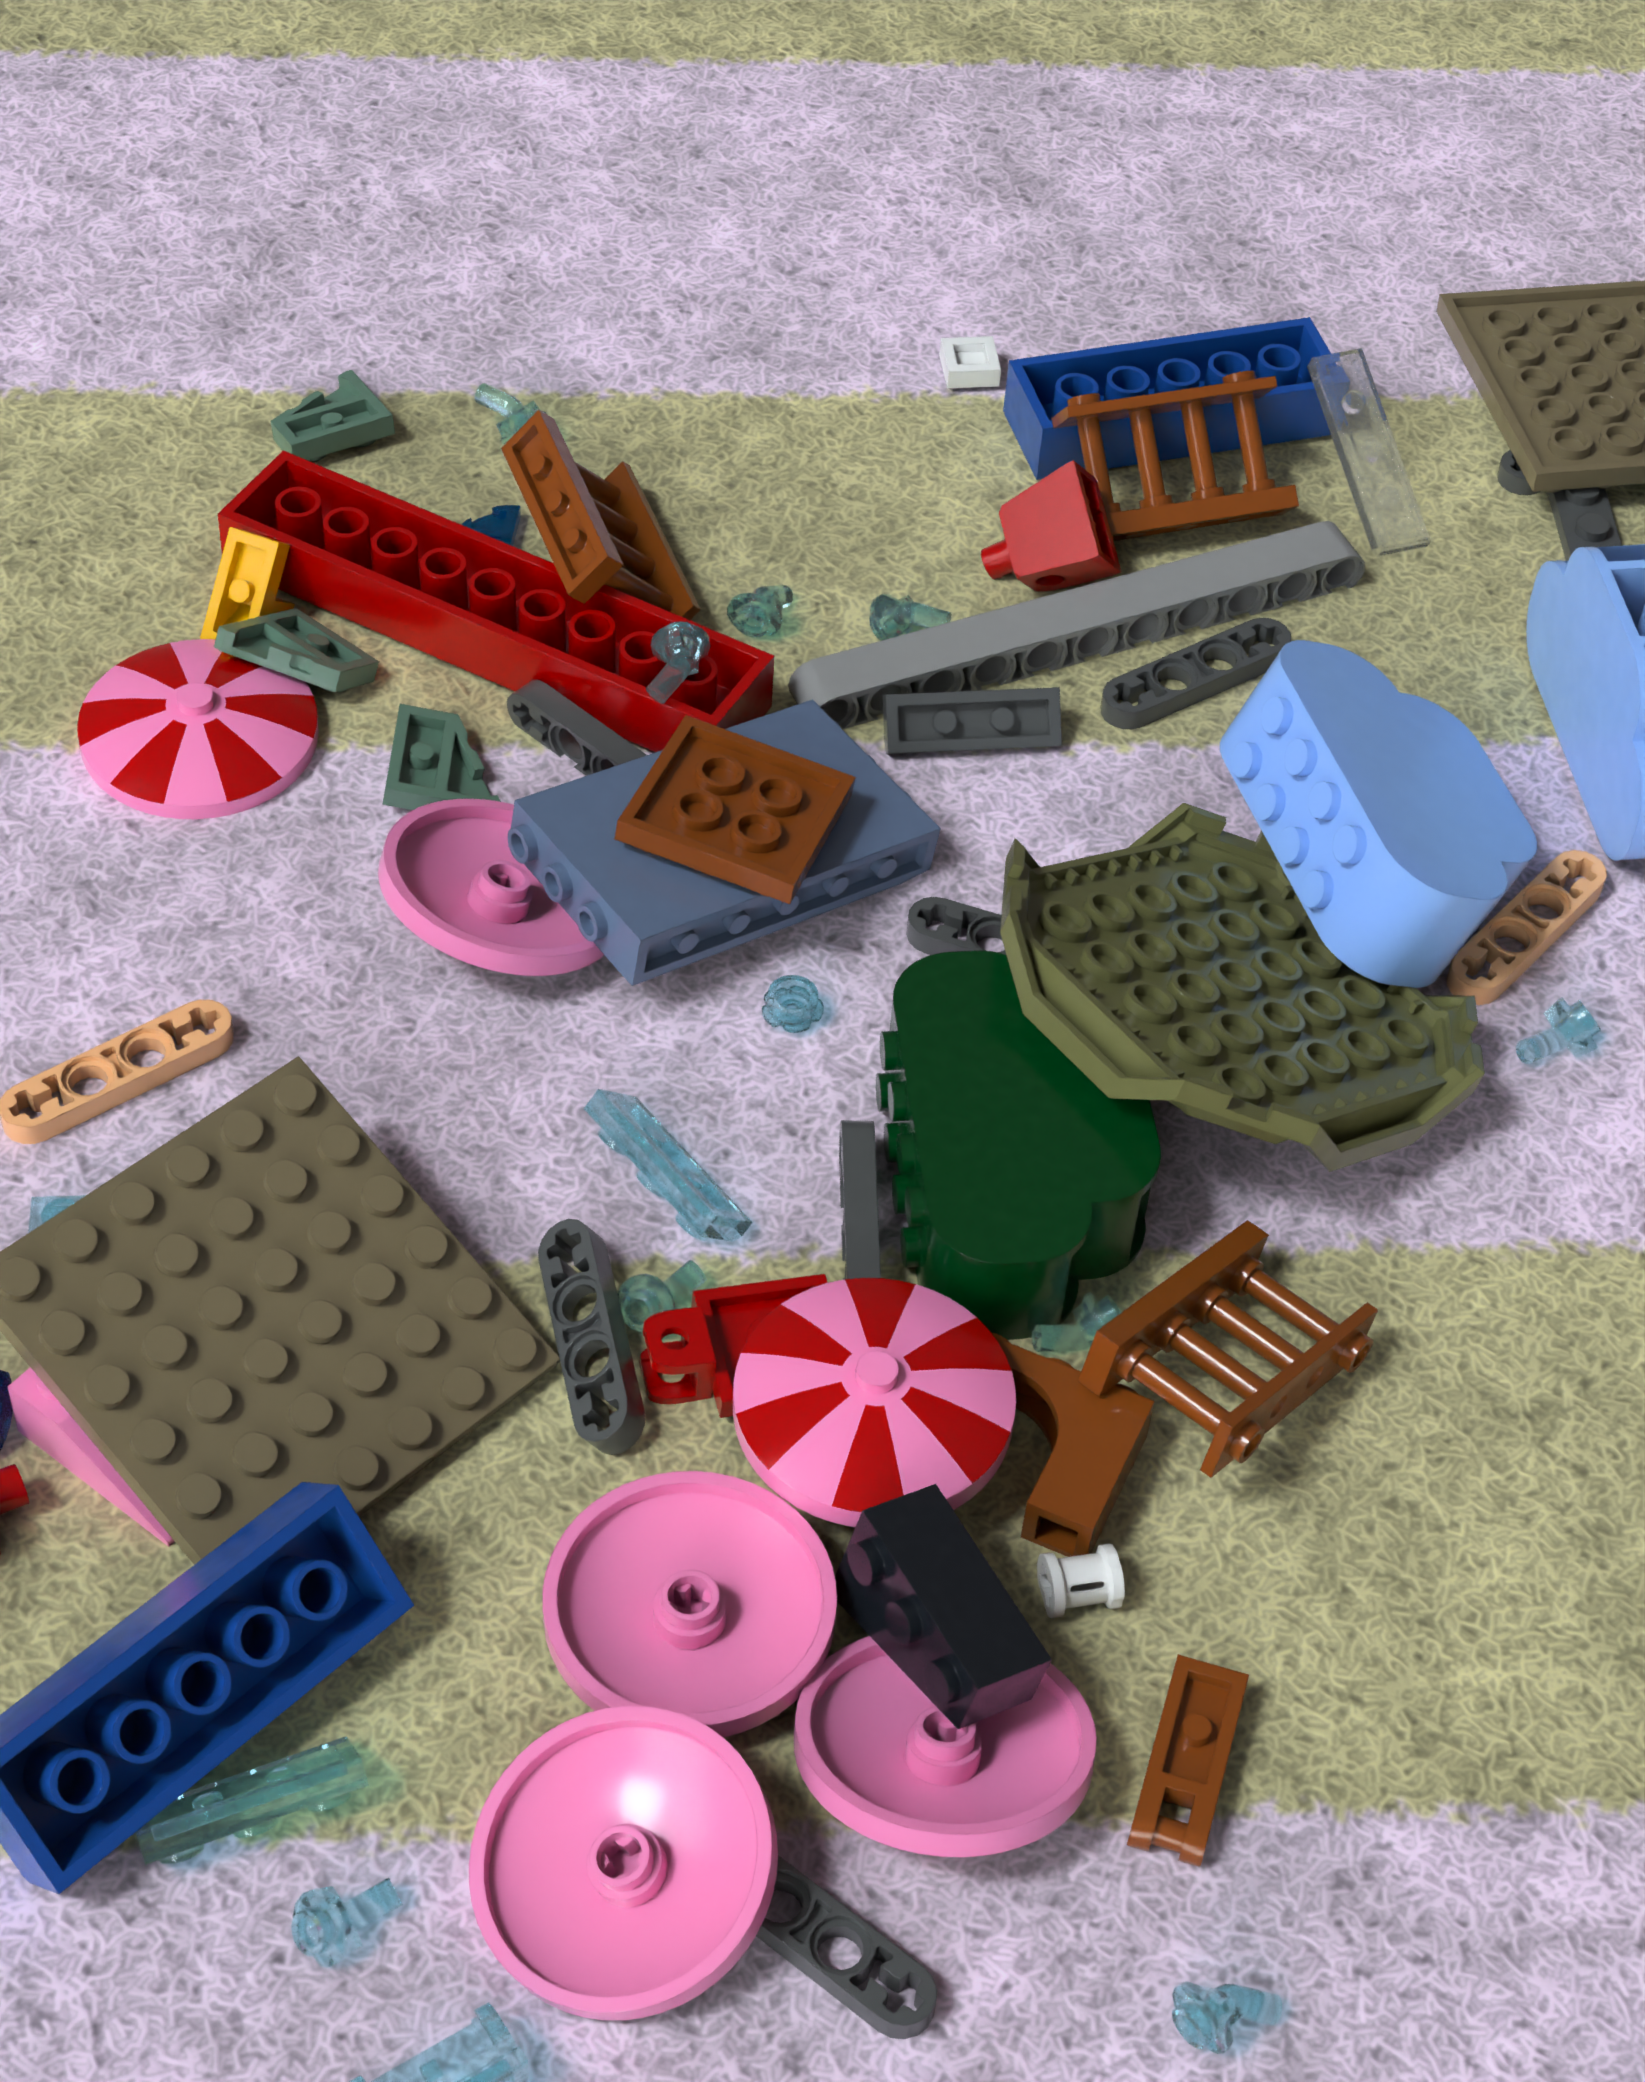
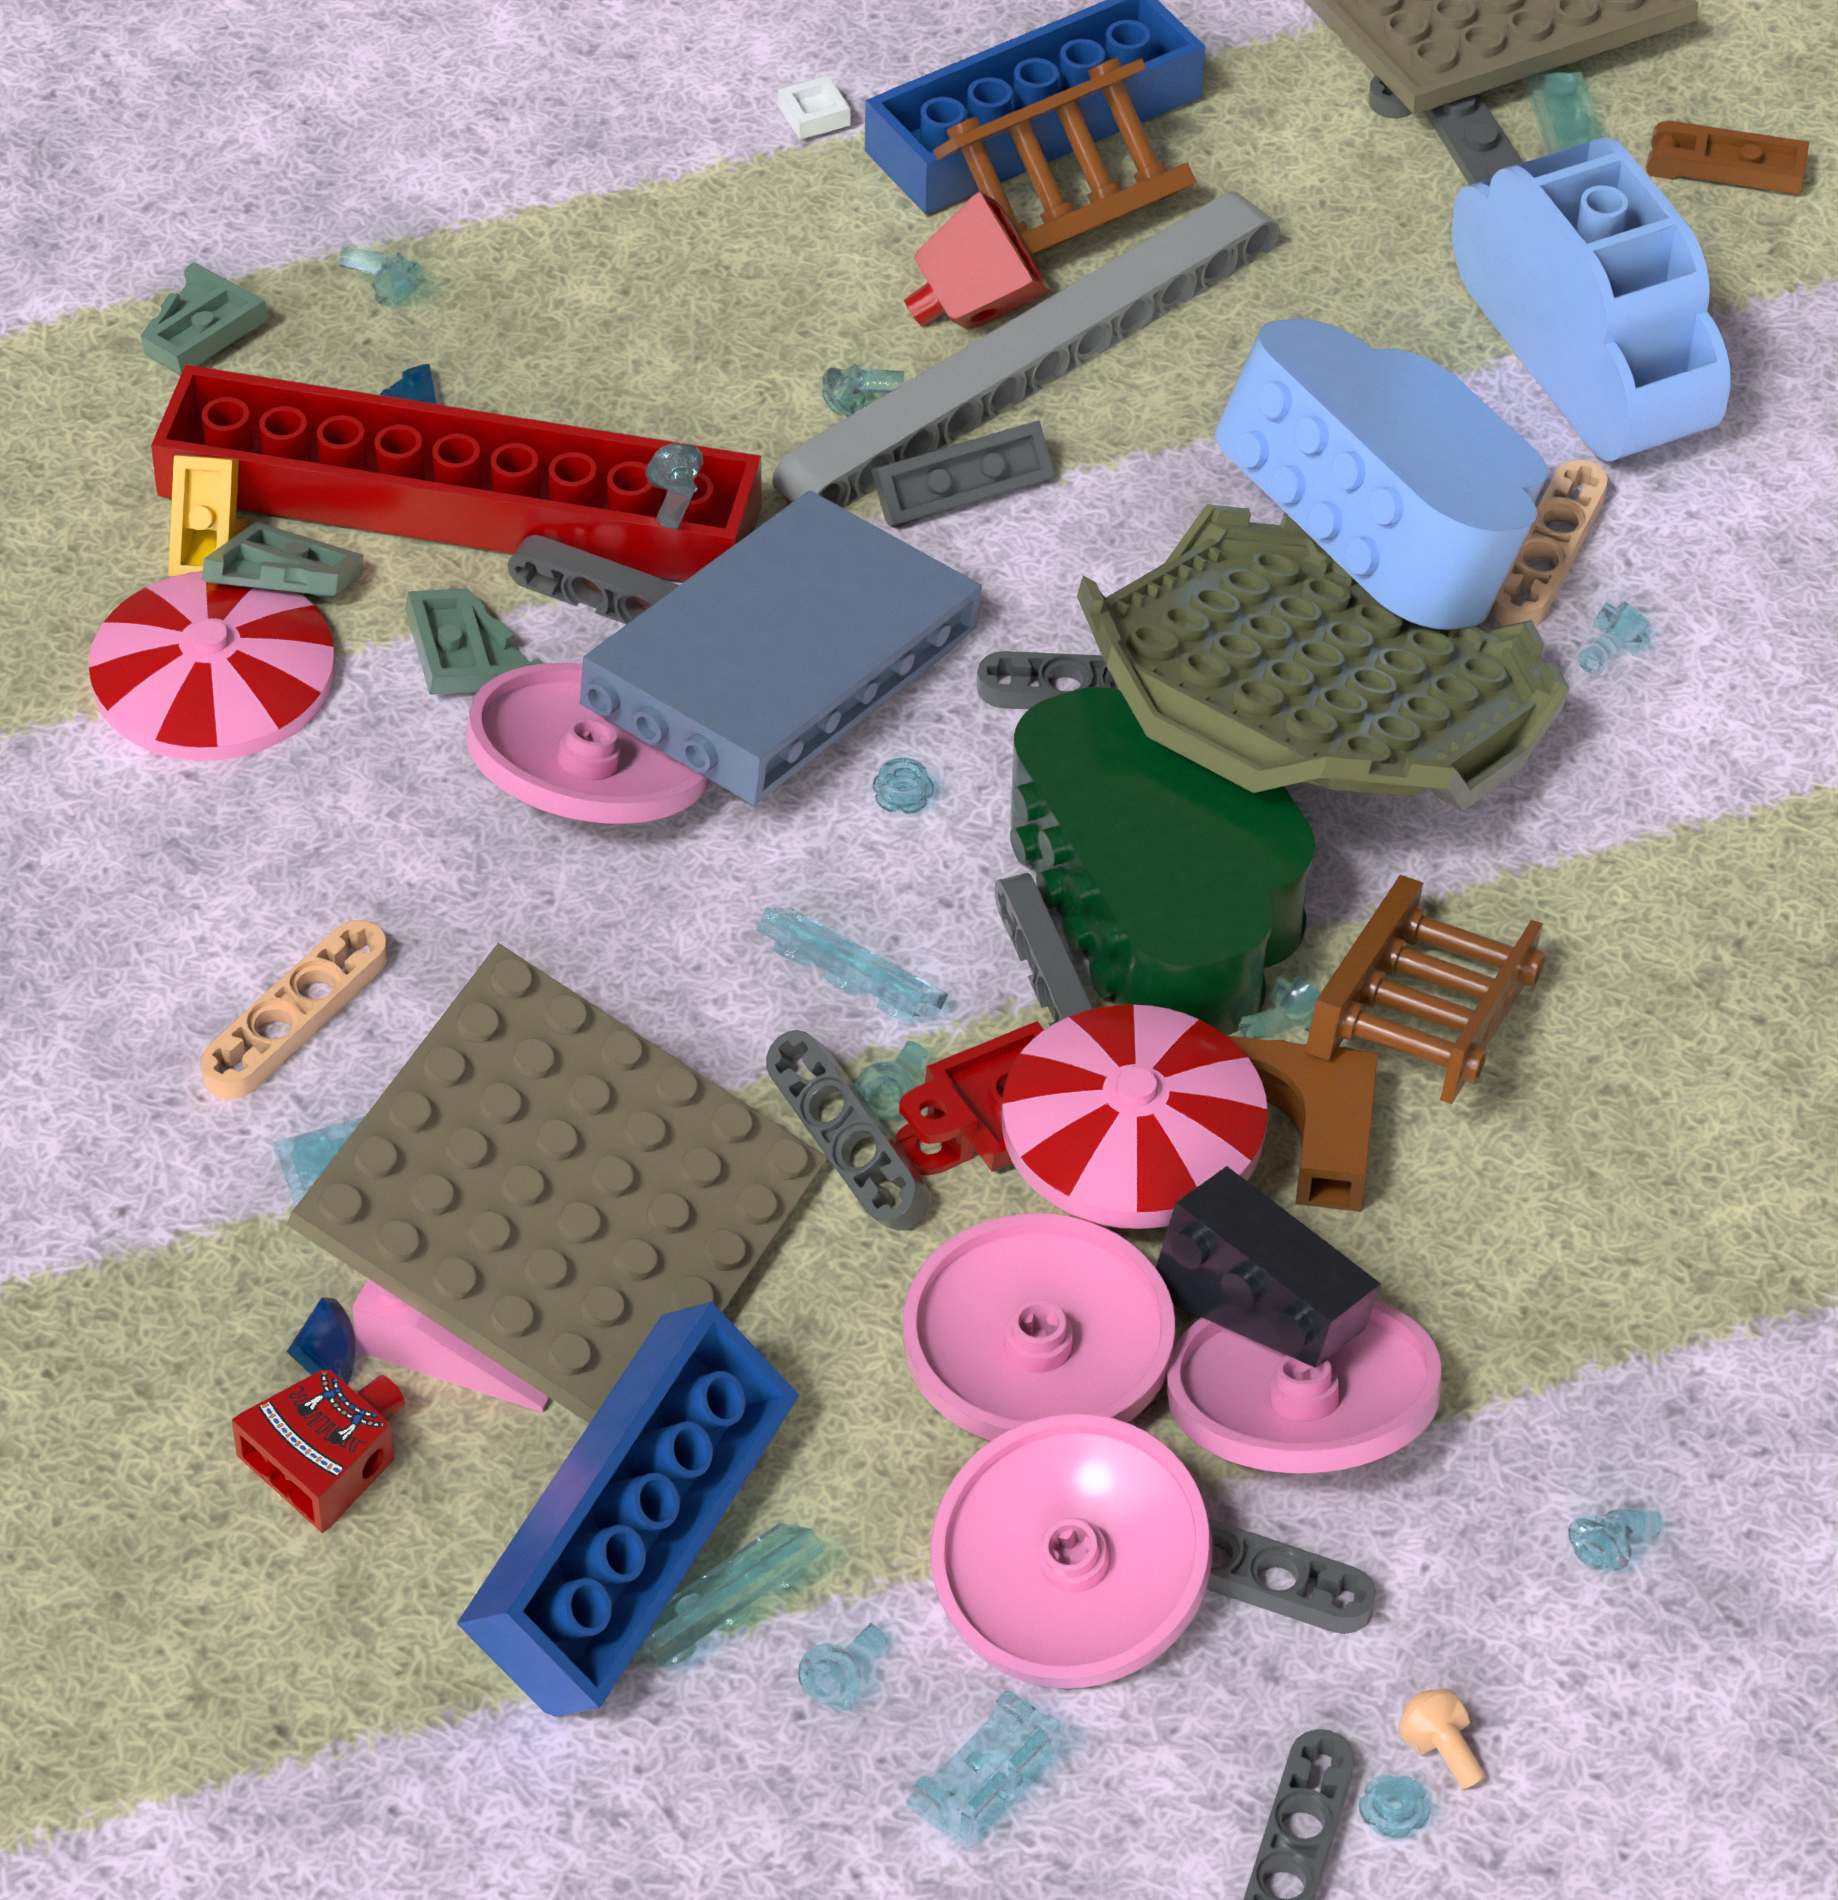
camera: 15 degrees left, 0 degrees up
(595, 525) = (525, 362): dark orange fence -> none
(735, 809) = (795, 613): dark orange plate -> none
(759, 611) = (713, 414): clear light blue plate -> none
(1080, 1580) = (1366, 1222): white bush -> none
(1189, 1757) = (1512, 1343): dark orange plate -> none
(1190, 668) = (1148, 371): dark grey beam -> none
(1368, 453) = (1245, 112): clear tile -> none

